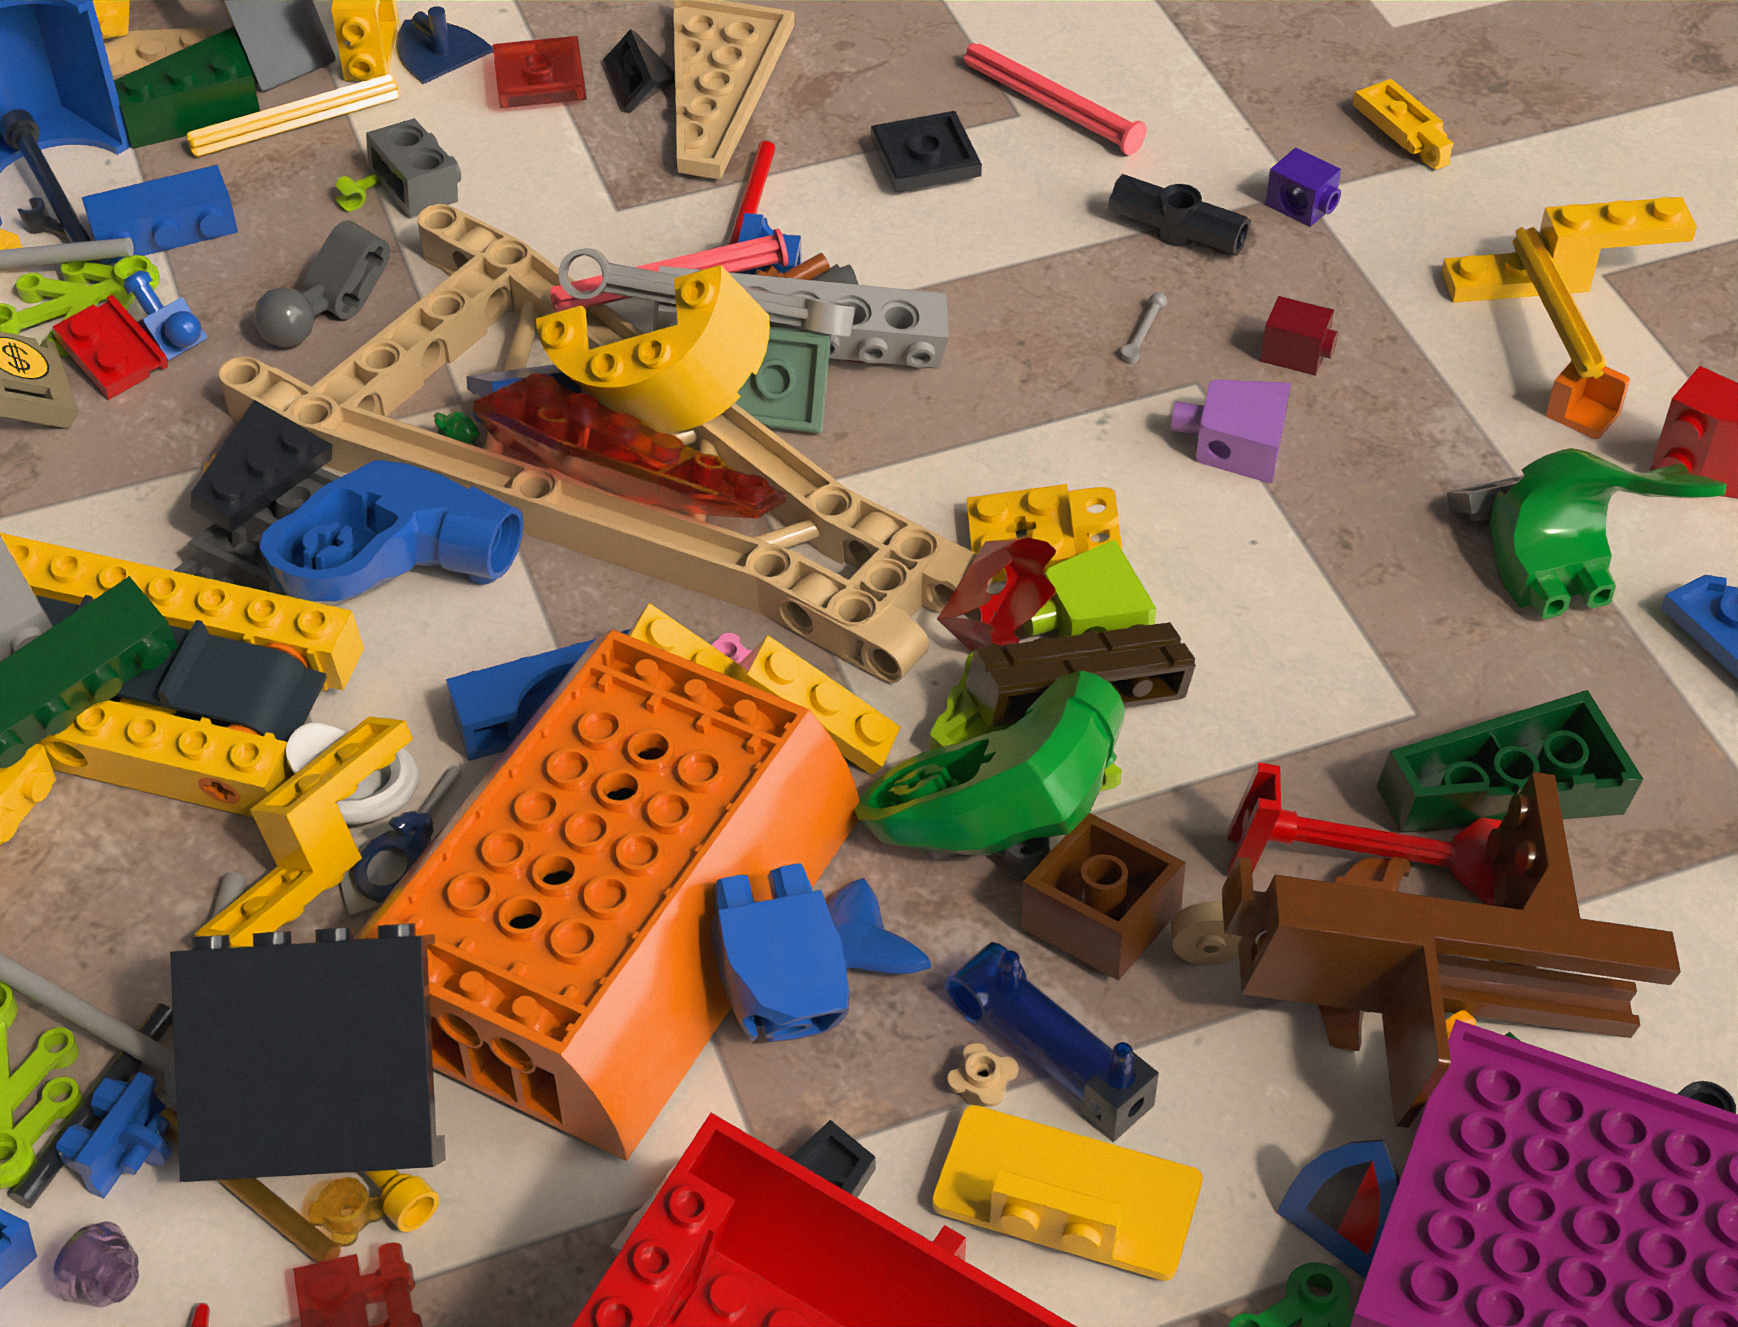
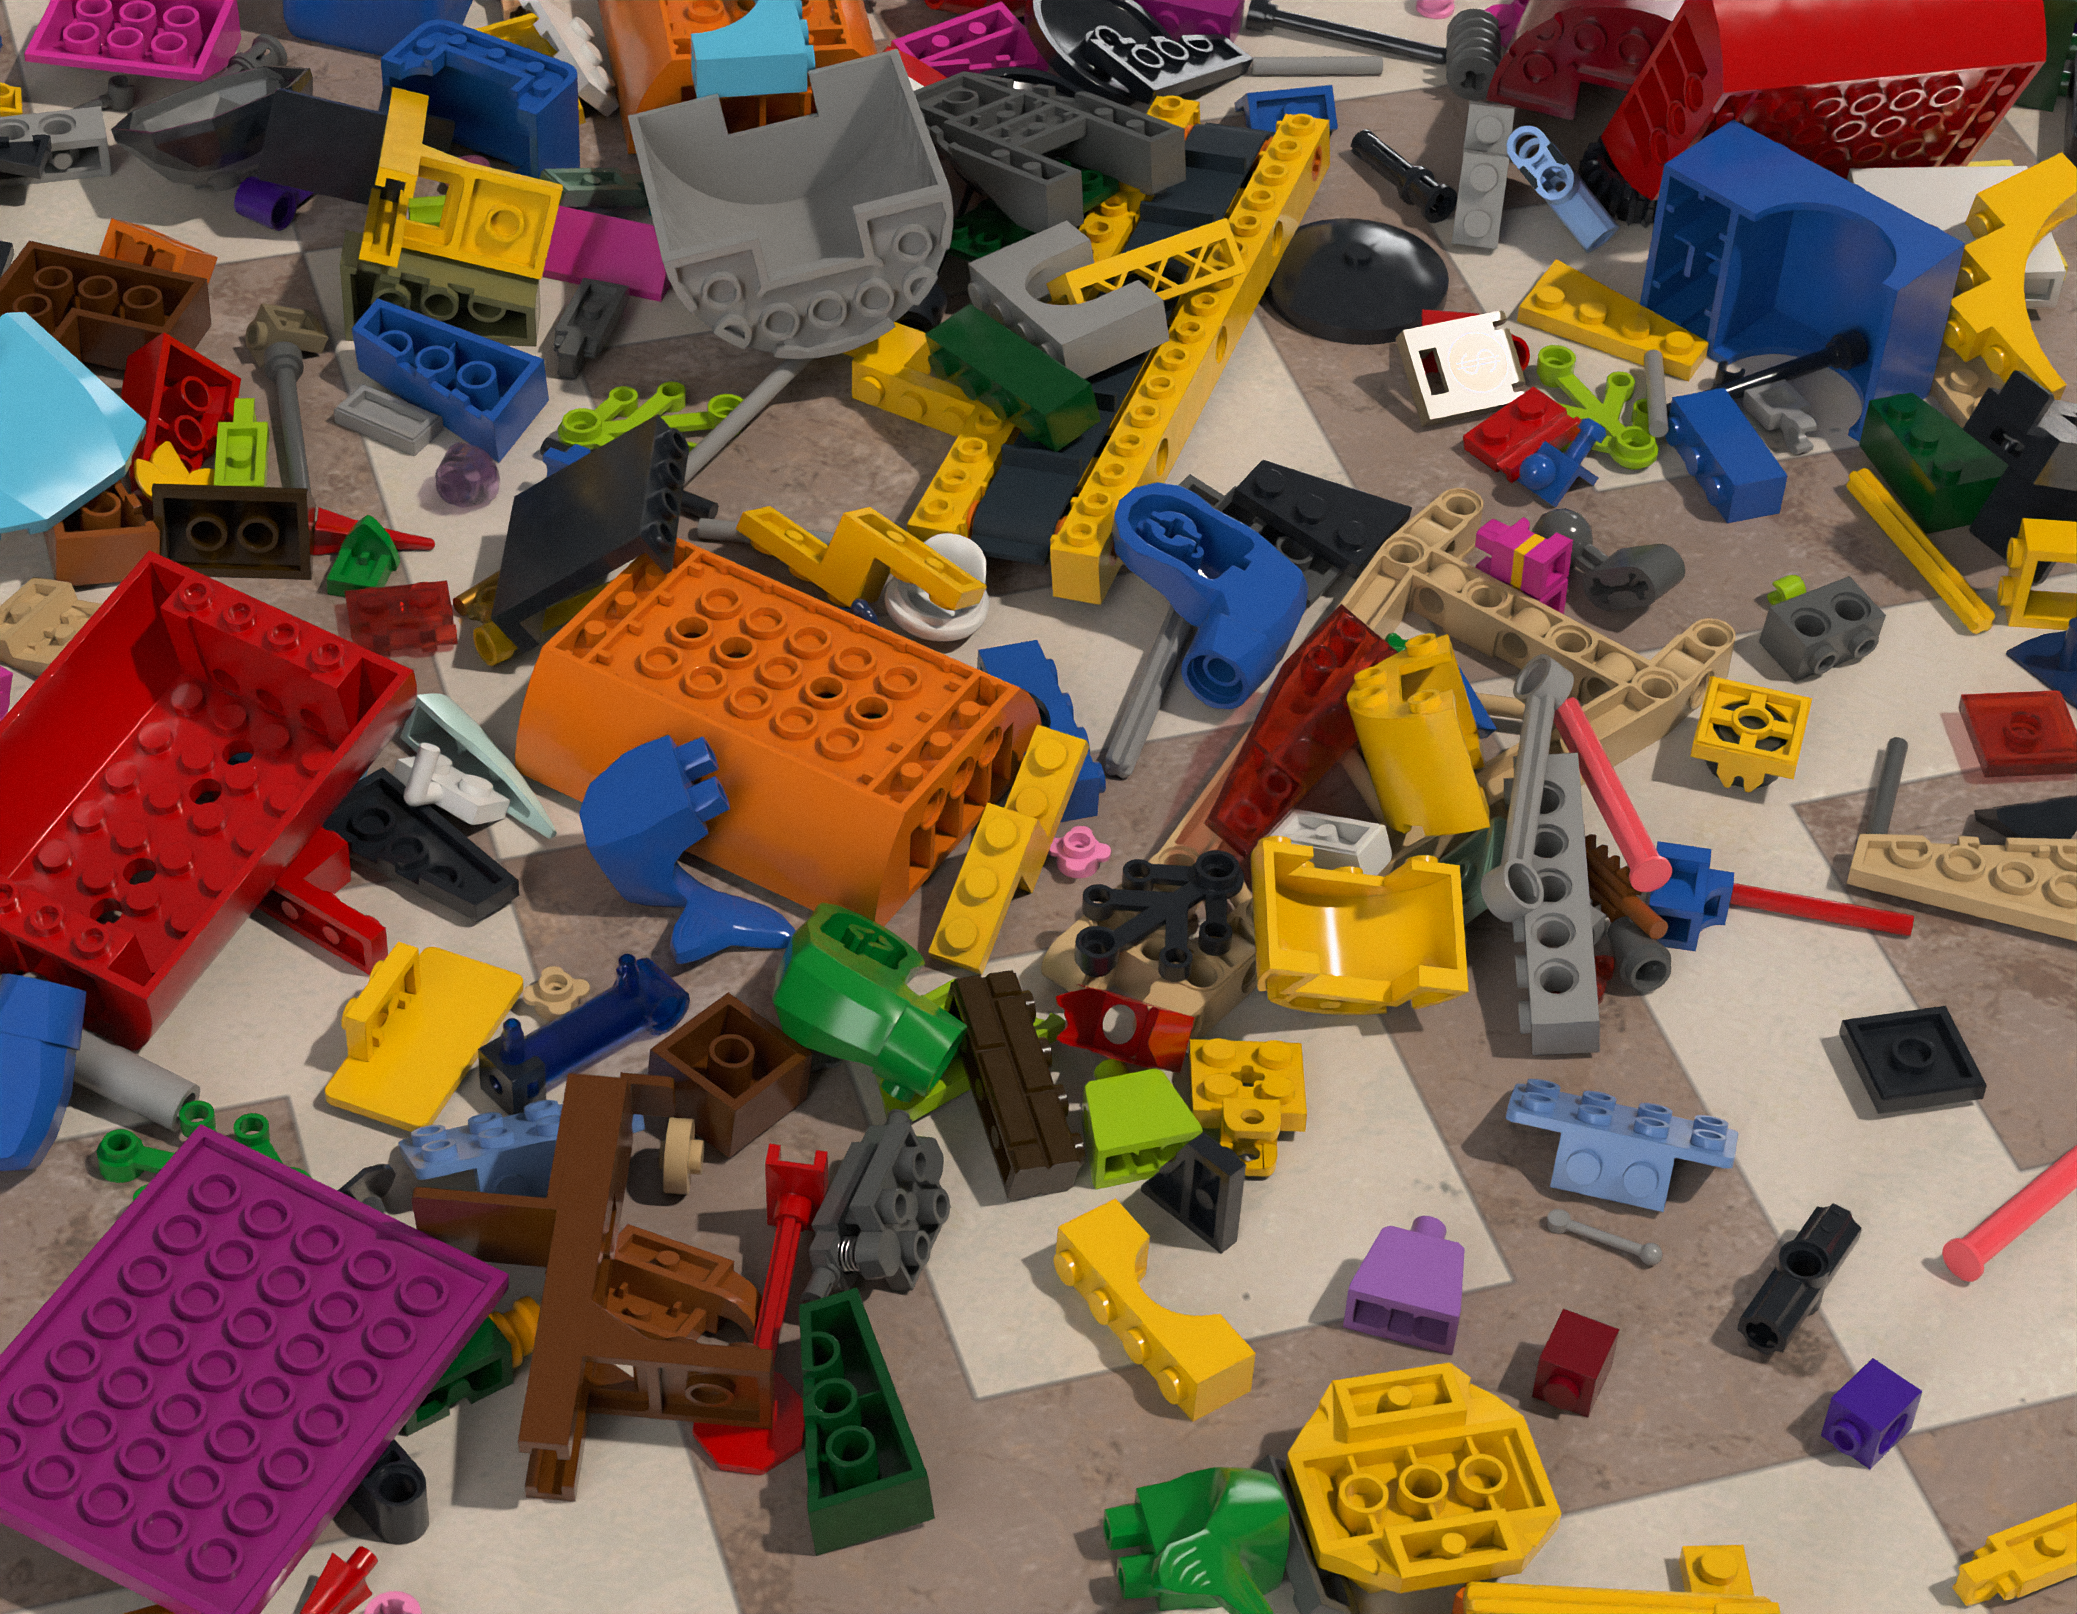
camera: 90 degrees right, 5 degrees down
(93, 177) = (1783, 408): none -> light grey plate
(341, 324) = (1527, 560): none -> dark pink hips
(481, 614) = (1148, 695): none -> light grey axle
(561, 207) = (1750, 733): none -> yellow piece
(579, 1229) = (473, 752): none -> light aqua piece
(611, 153) = (1887, 786): none -> dark grey bar
(755, 439) = (1339, 840): none -> white slope
(809, 527) = (1212, 877): none -> black plant
(865, 423) = (1353, 937): none -> yellow cylinder
(1049, 302) = (1618, 1148): none -> medium blue bracket
(1182, 540) = (1202, 1190): none -> black wing
(1220, 1073) = (505, 1152): none -> medium blue bracket
(1229, 750) = (879, 1211): none -> dark grey piece
(1263, 614) = (1192, 1357): none -> yellow arch
(1481, 401) = (1420, 1482): none -> yellow piece

